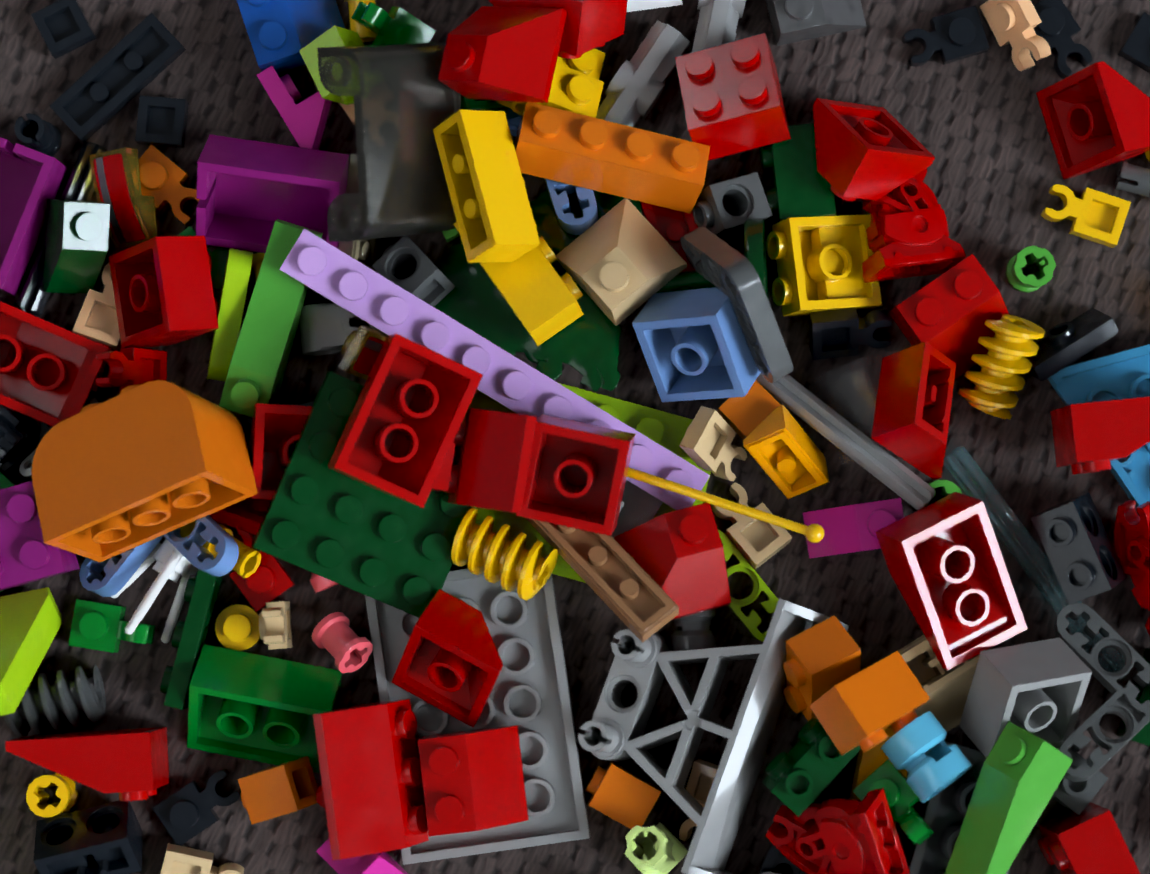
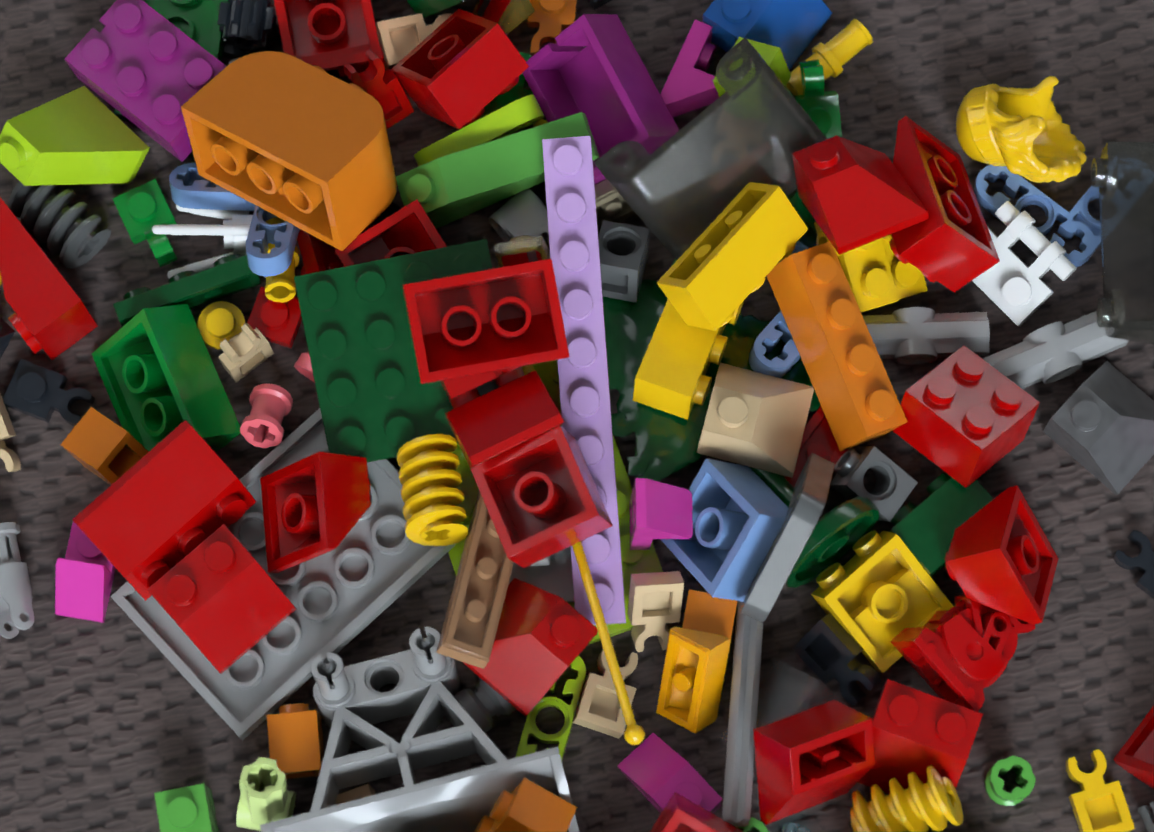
camera: 60 degrees right, 10 degrees down
(648, 391) = (658, 513): none -> dark pink slope

